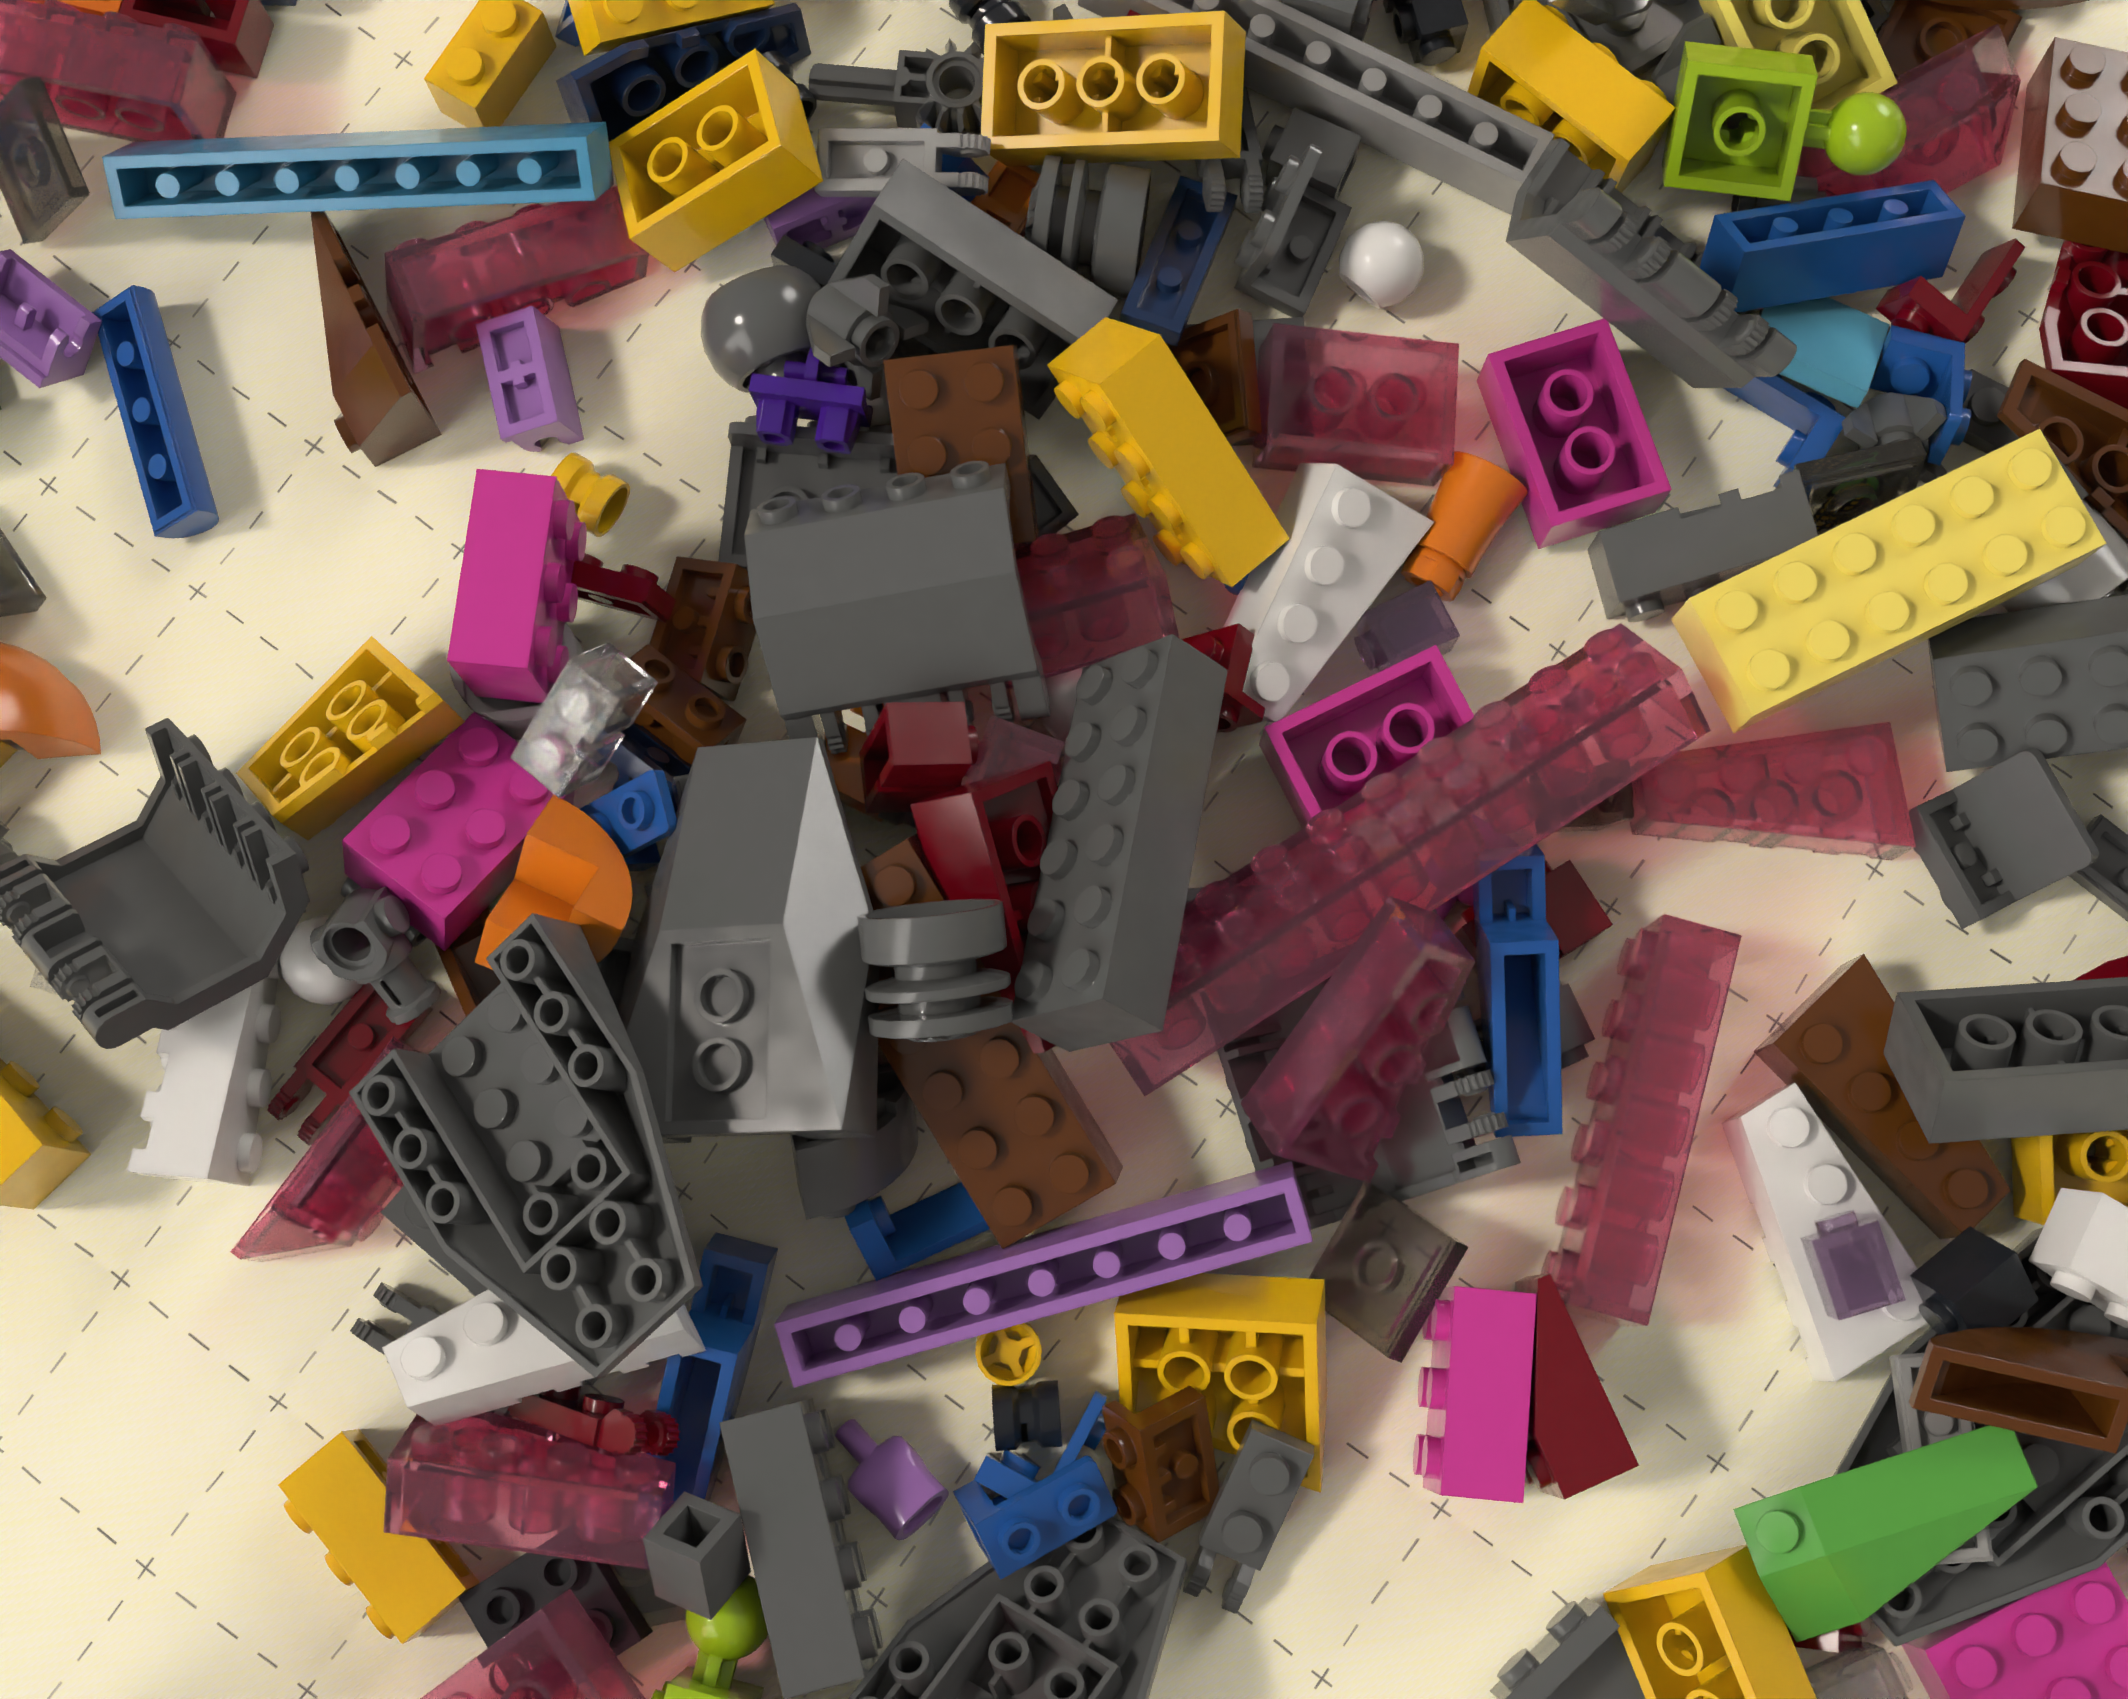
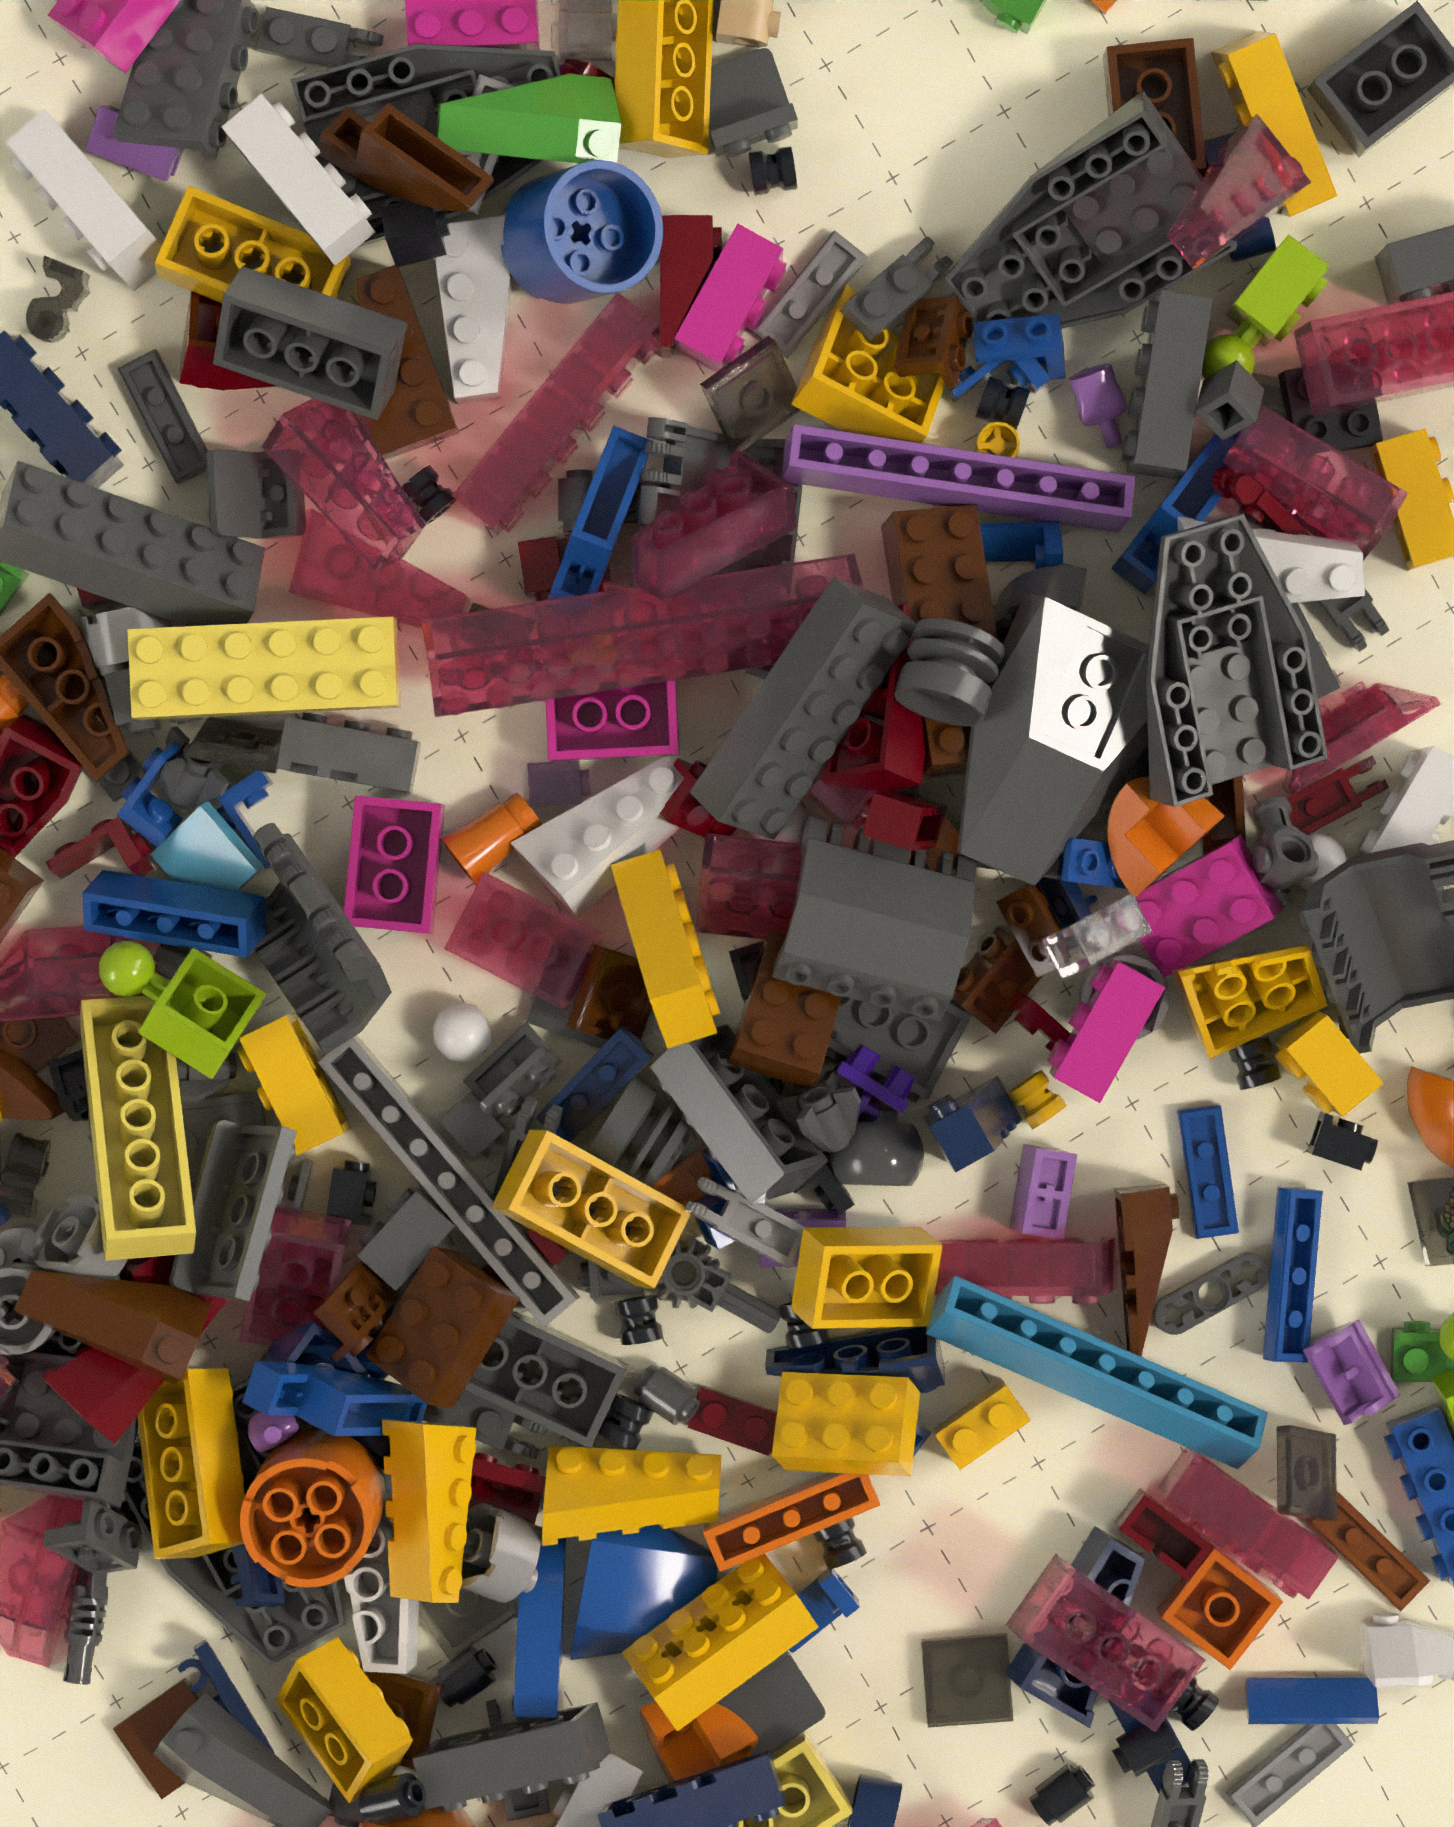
camera: 160 degrees left, 10 degrees up
(152, 606) = (1341, 1142): none -> black brick
(195, 678) = (1327, 1062): none -> yellow brick
(260, 377) = (1234, 1269): none -> dark grey beam
(306, 656) = (1254, 1063): none -> black wheel
(322, 503) = (1207, 1171): none -> blue tile
(655, 396) = (972, 1123): none -> dark blue wedge
(1363, 1456) = (811, 293): none -> light grey tile
(1498, 1611) = (773, 170): none -> black wheel
(1705, 1437) = (612, 227): none -> blue brick
(1765, 943) = (428, 496): none -> black wheel
(1851, 1265) = (479, 274): clear purple brick -> none
(1891, 901) = (346, 479): none -> clear pink wedge

